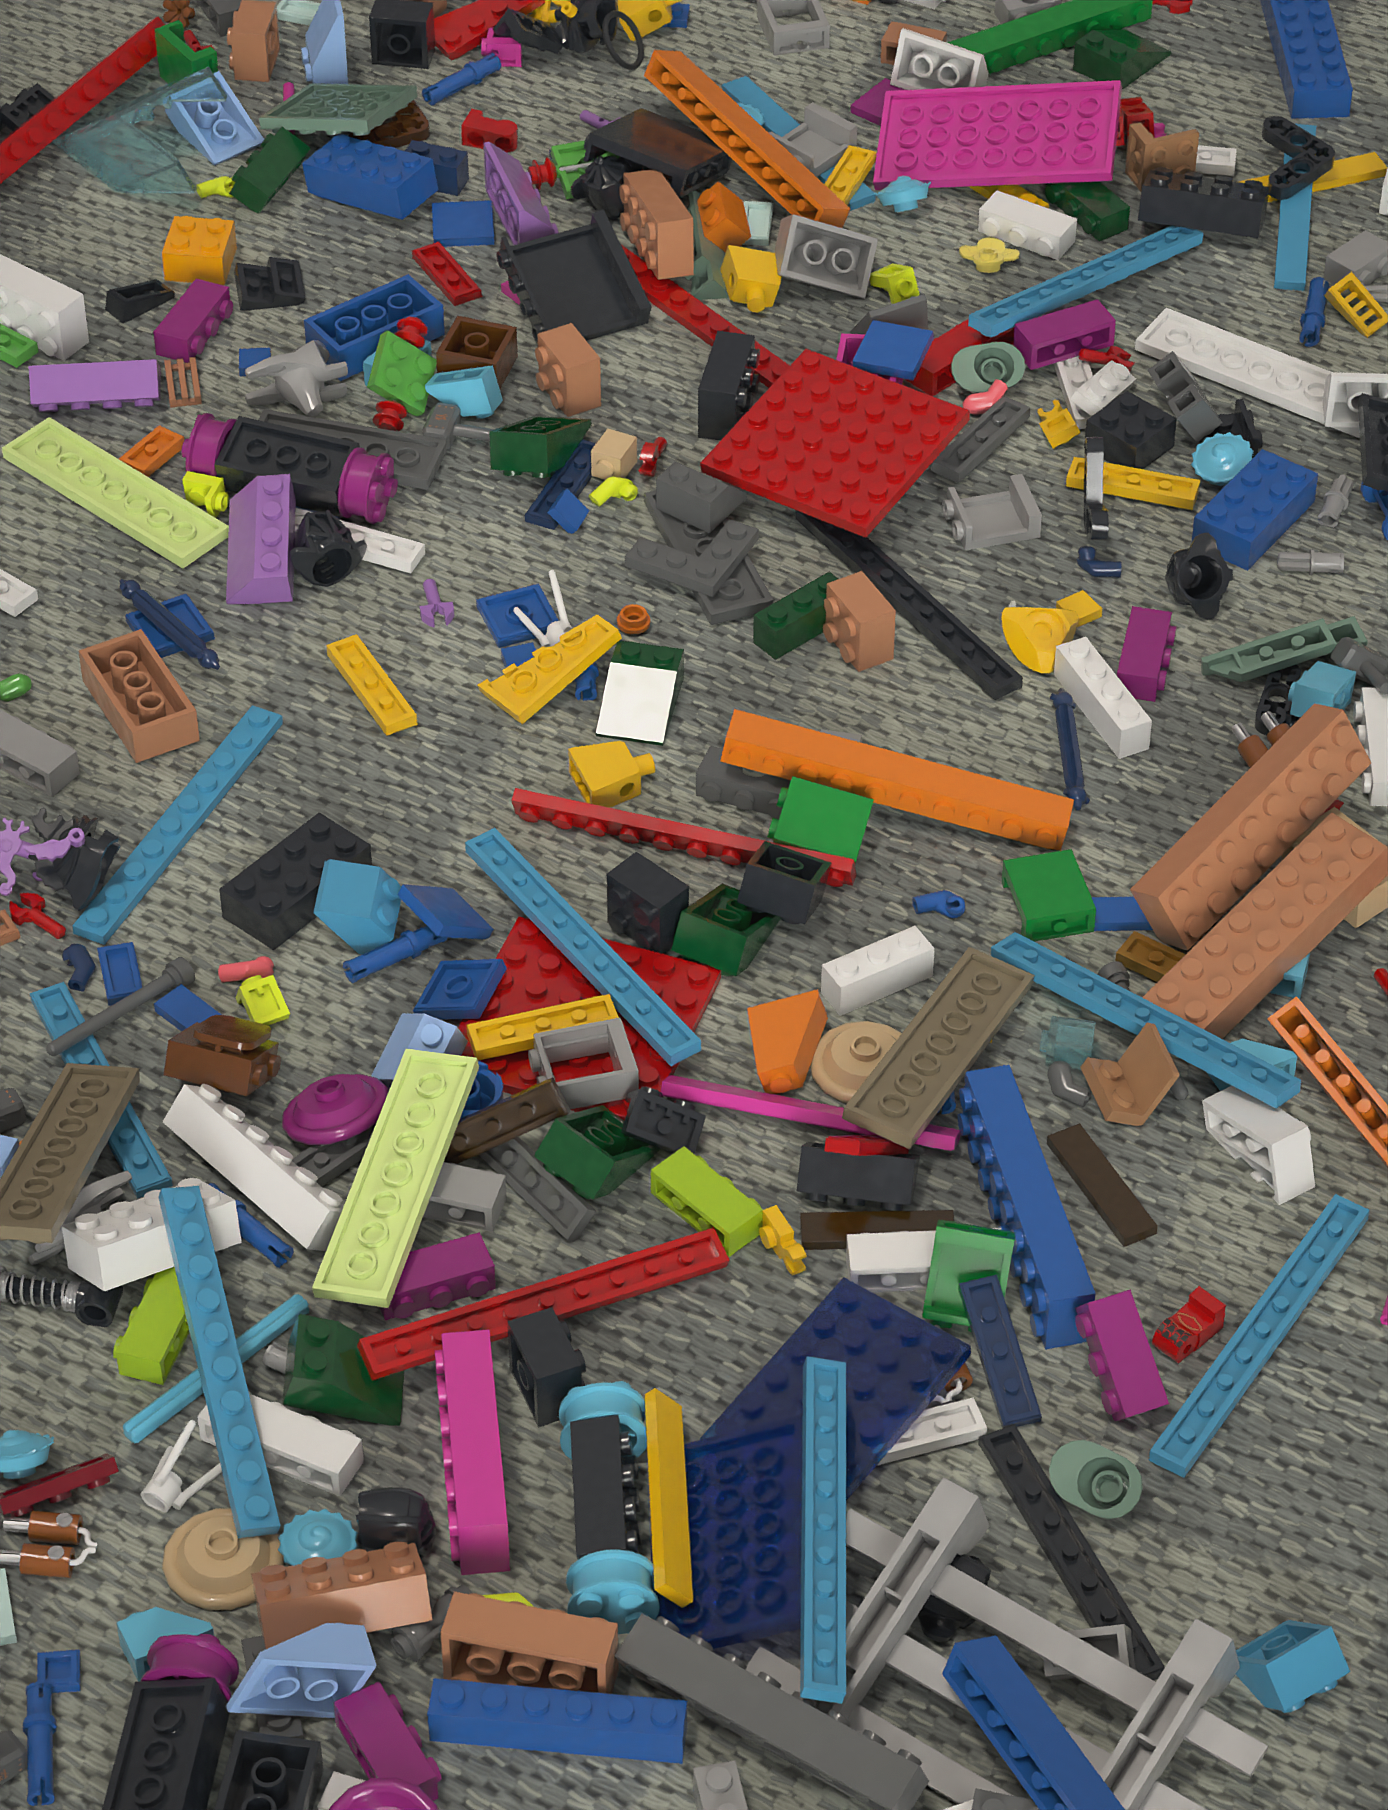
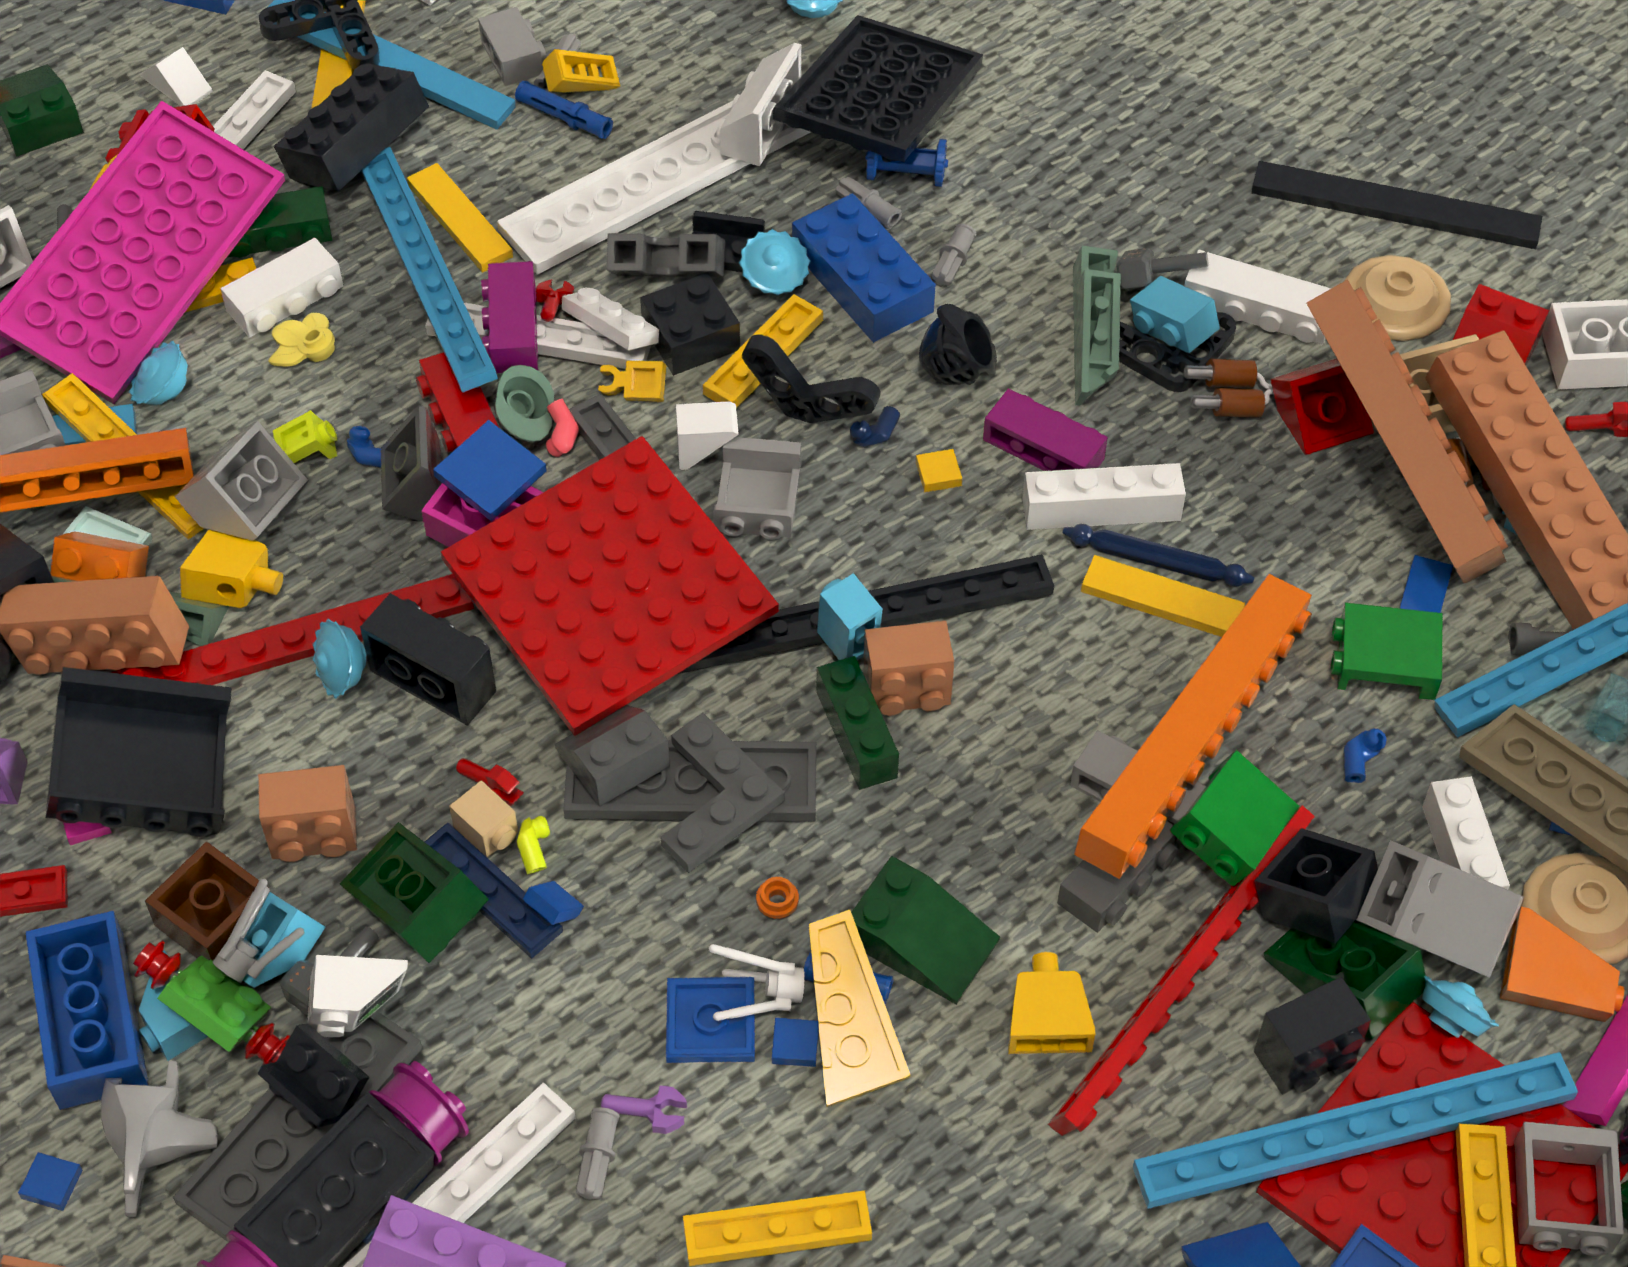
camera: 70 degrees left, 10 degrees up
(322, 537) = (513, 1201): black piece -> none
(369, 427) = (315, 1077): none -> black bracket
(387, 588) = (597, 1153): none -> light grey axle
(428, 417) = (350, 991): none -> white slope
(435, 367) = (238, 955): none -> light grey plant
(700, 349) = (338, 657): none -> medium azure piece
(721, 987) = (1456, 1007): none -> medium azure piece
(795, 943) = (1440, 908): none -> light grey slope
(878, 559) = (844, 614): none -> medium azure brick
(1016, 455) = (703, 430): none -> white slope
(1029, 749) = (1160, 596): none -> yellow tile
(1036, 633) = (978, 516): yellow hat -> none
(1147, 956) = (1508, 594): pearl gold plate -> none
(1164, 292) = (459, 217): none -> yellow tile
(1170, 151) = (257, 132): medium nougat bracket -> none
(1200, 112) = (178, 78): none -> white slope

